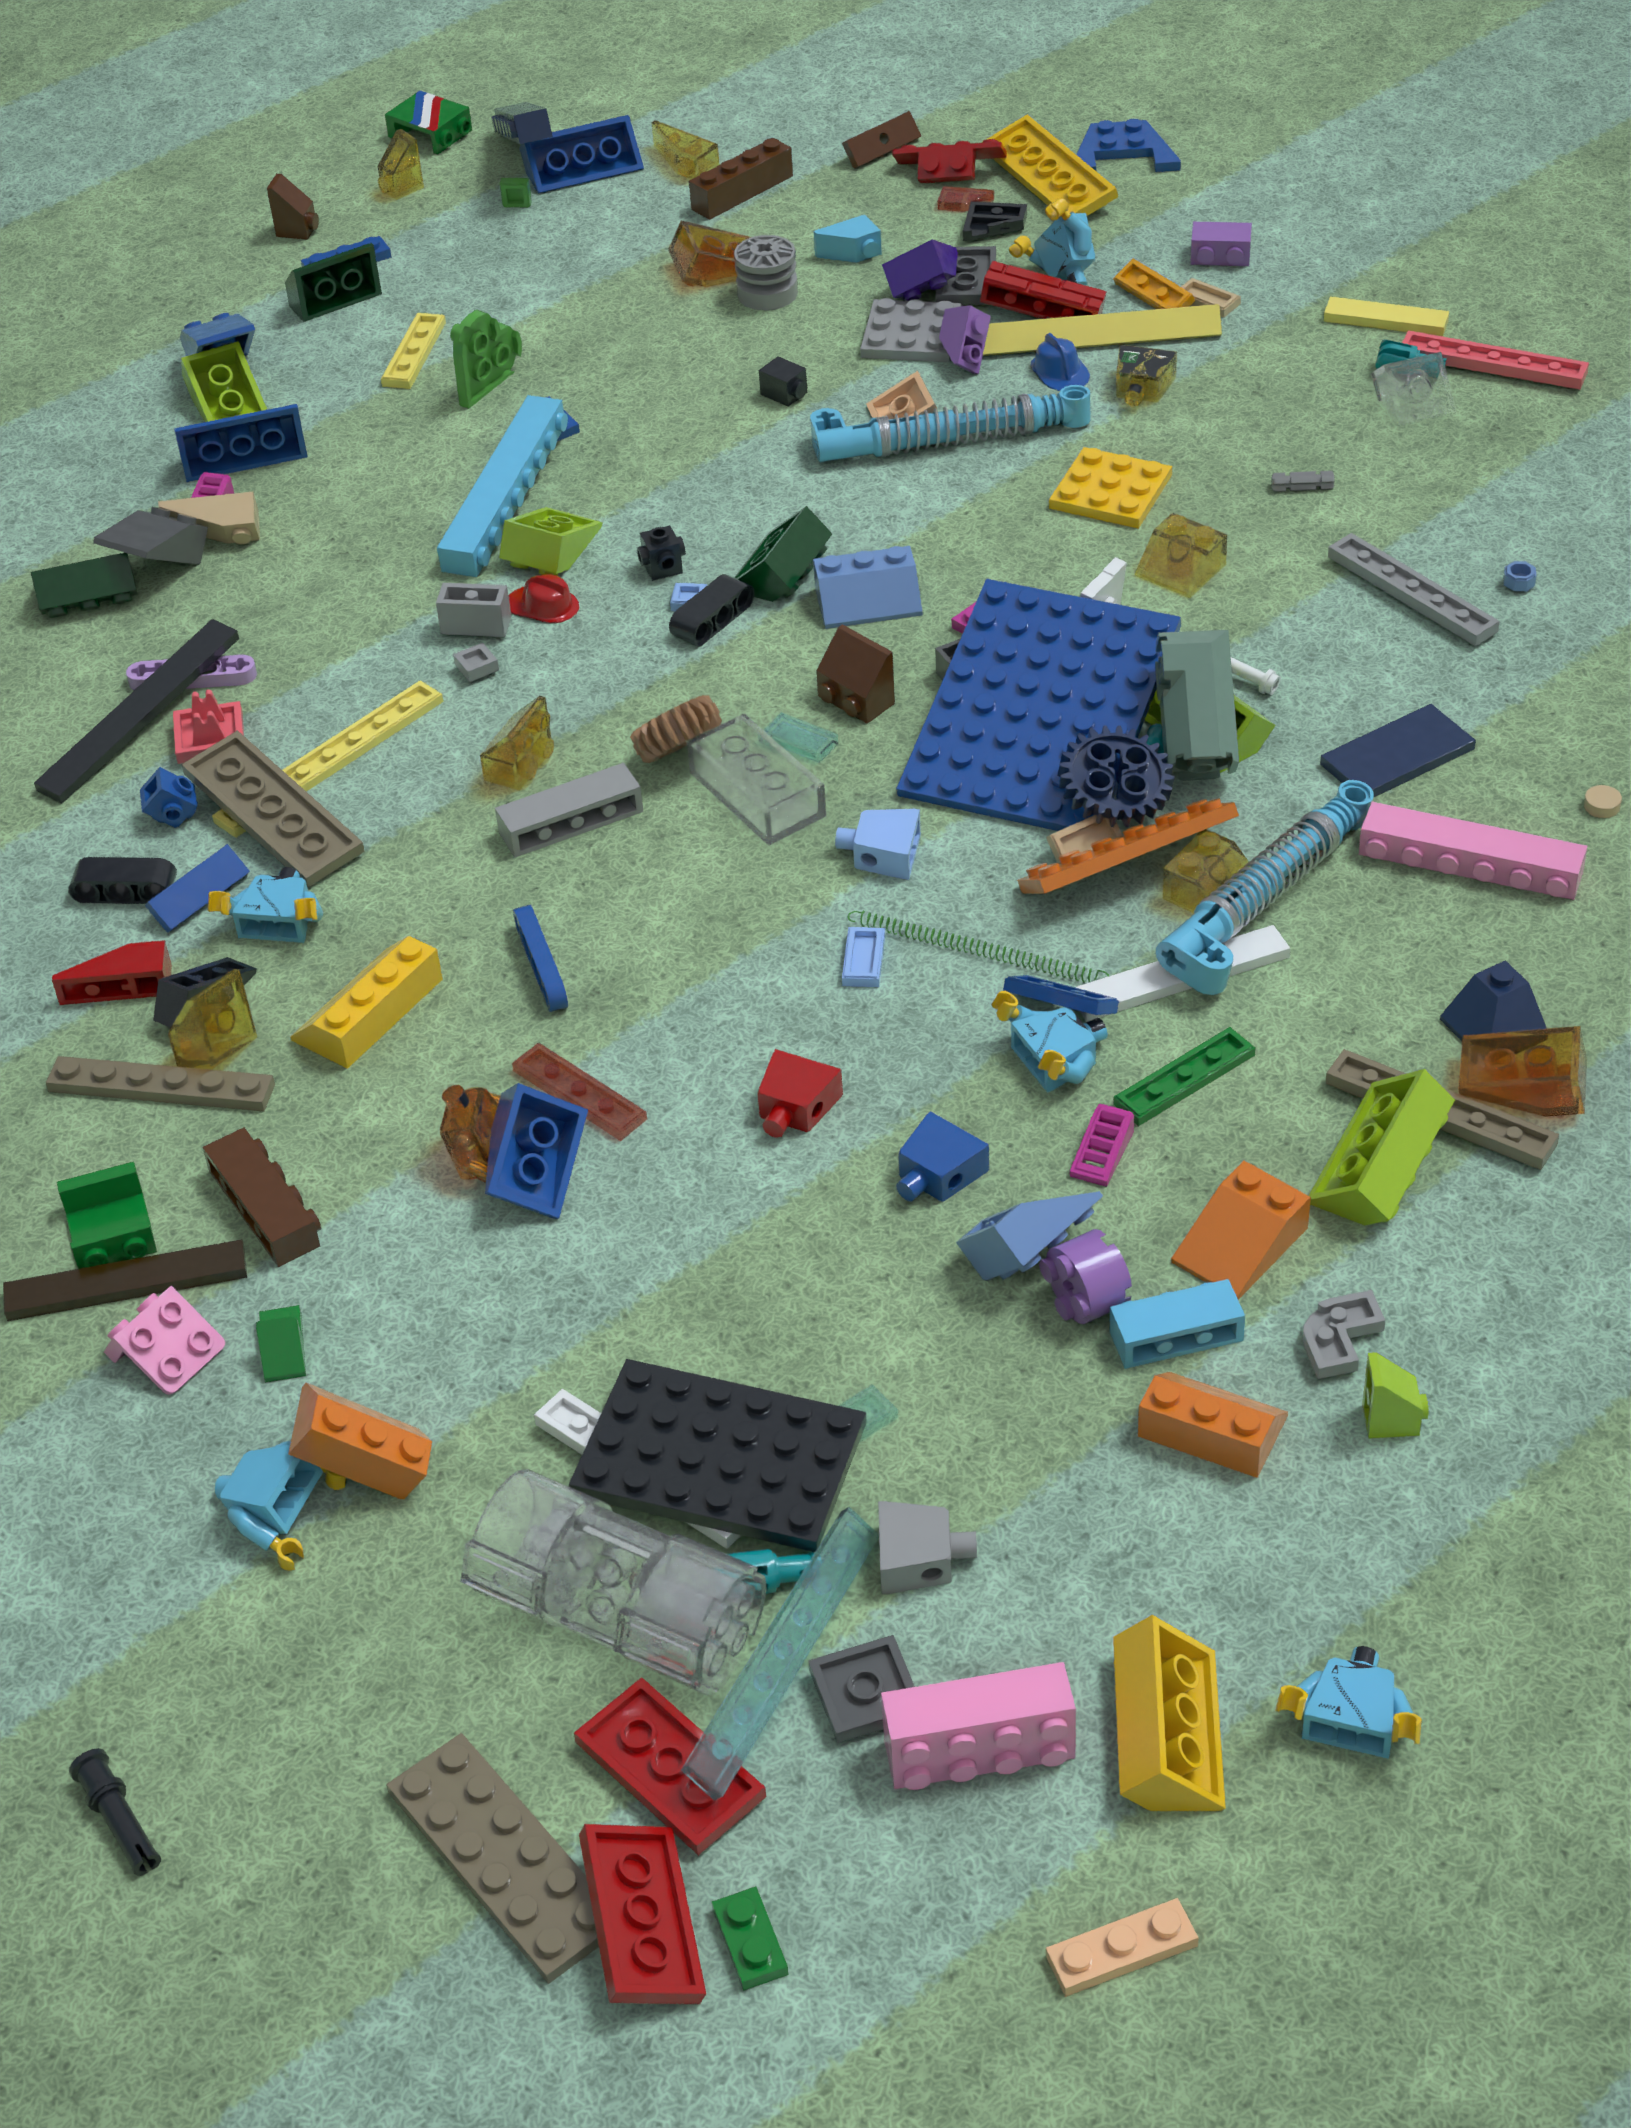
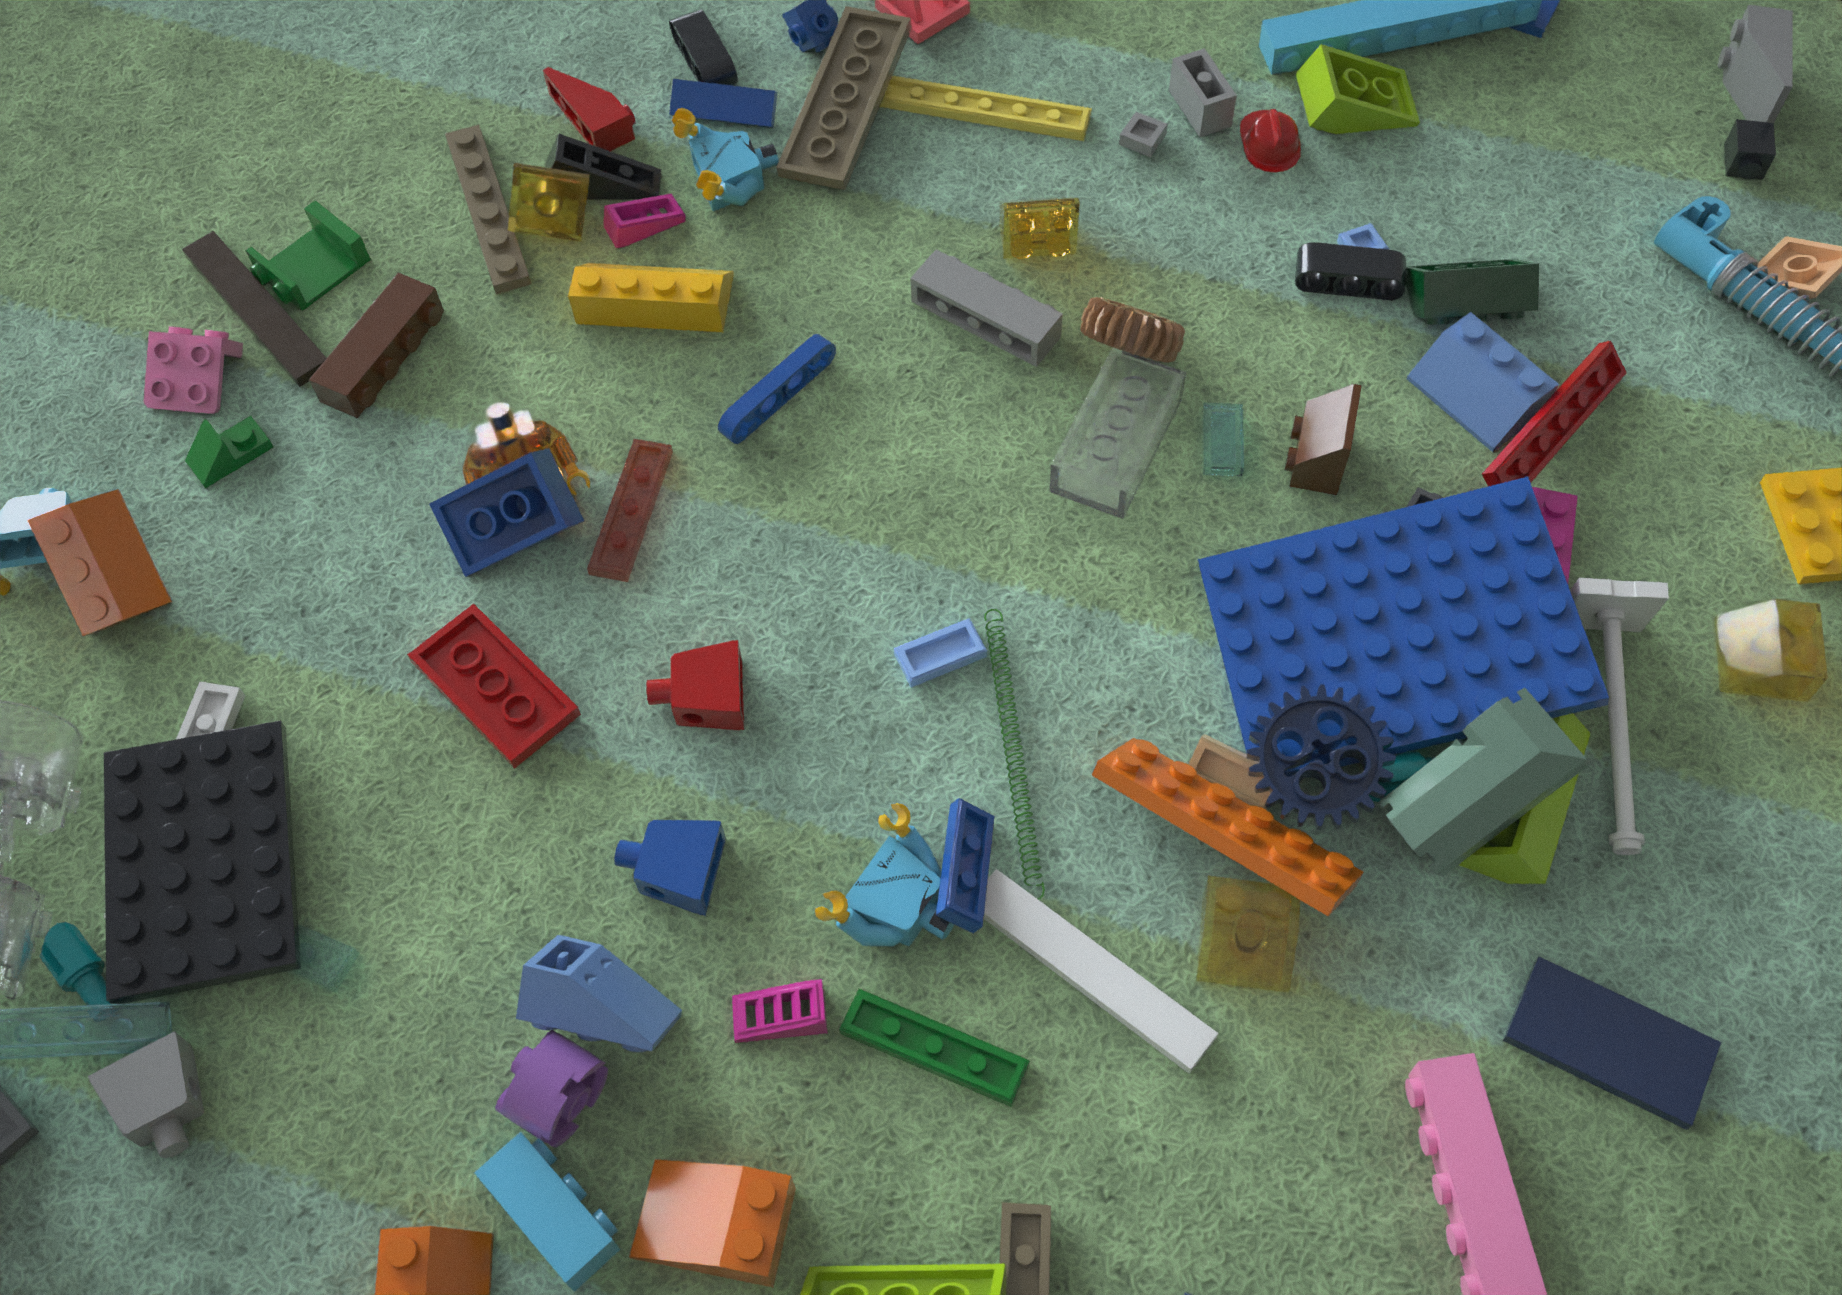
camera: 60 degrees right, 15 degrees up
(273, 993) = (629, 221): none -> dark pink slope
(661, 552) = (1398, 188): black brick -> none
(687, 1224) = (494, 685): none -> red plate
(724, 337) = (1759, 62): none -> light grey slope
(883, 841) = (1108, 588): light blue torso -> none
(932, 563) = (1558, 417): none -> red tile
(1196, 948) = (1175, 971): medium azure piece -> none

